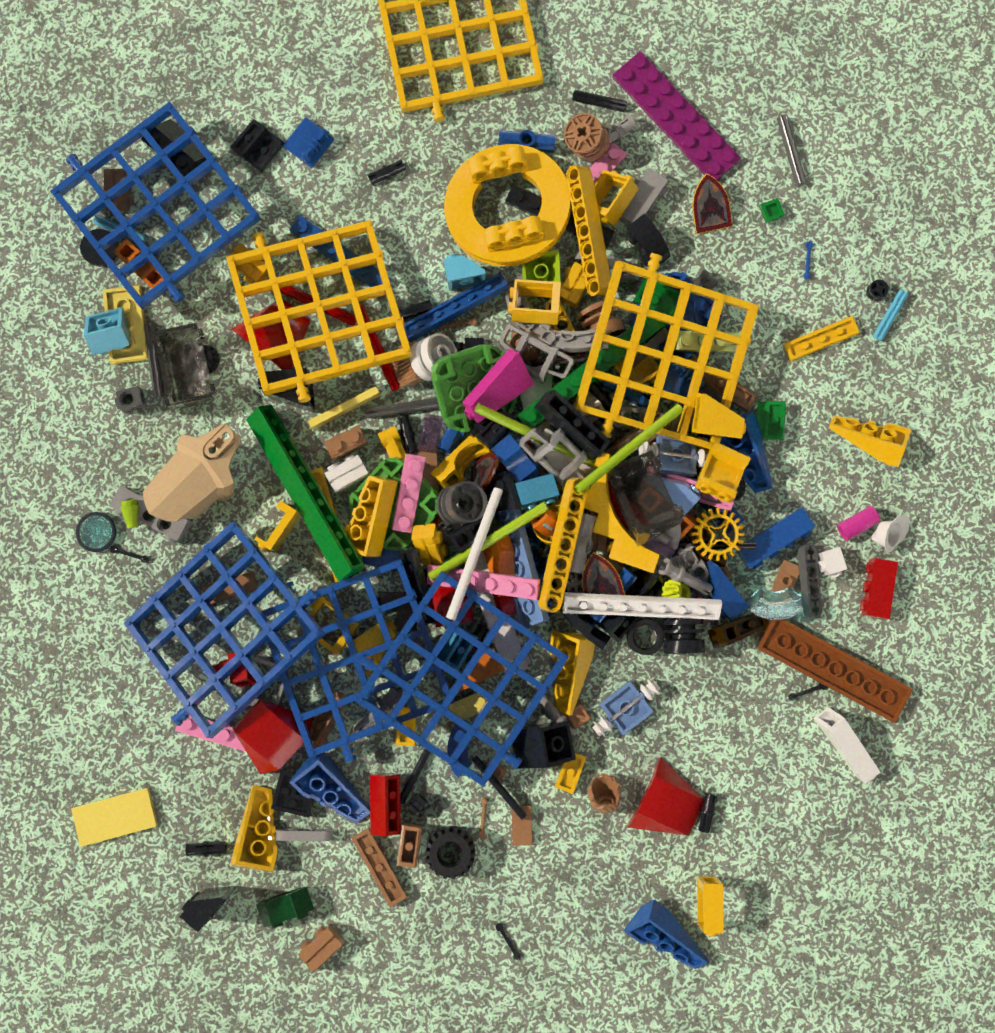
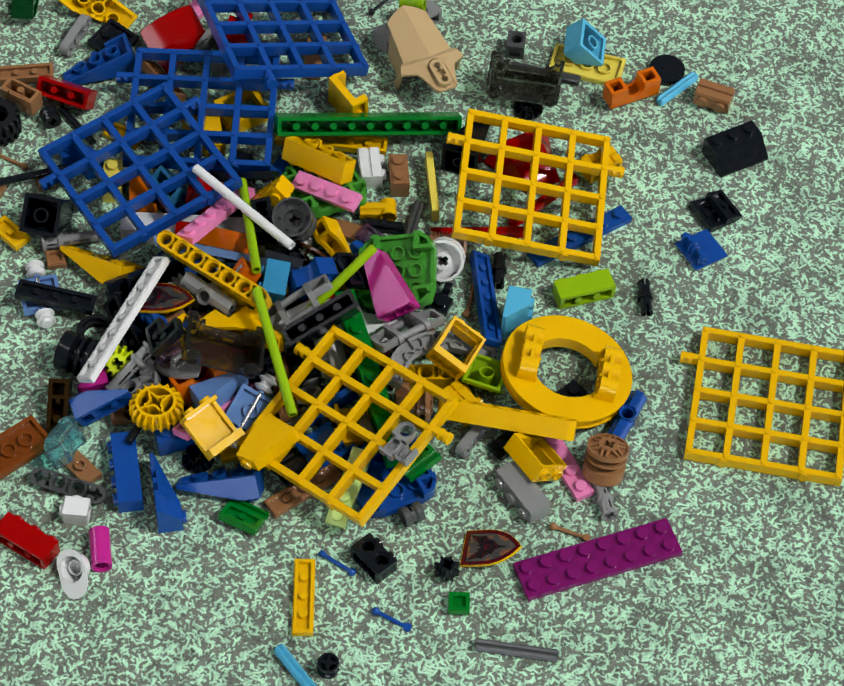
camera: 110 degrees right, 30 degrees down
(155, 205) = (681, 105): blue piece -> none
(402, 227) = (583, 289): none -> lime brick
(599, 100) = (643, 498): black axle -> none
(628, 278) = (449, 451): dark grey pin -> none
(631, 688) = (55, 297): none -> black plate
(647, 239) = (474, 473): black brick -> none
(658, 135) = (553, 526): none -> medium nougat hinge
(662, 555) = (161, 336): none -> black plate
(686, 296) = (400, 450): none -> light grey piece
(745, 237) = (446, 569): none -> black gear
(766, 297) = (369, 560): none -> black brick
(779, 311) = (351, 571): none -> blue hinge
(795, 485) = (167, 505): none -> blue wedge
(880, 442) = (172, 602): yellow wedge -> none

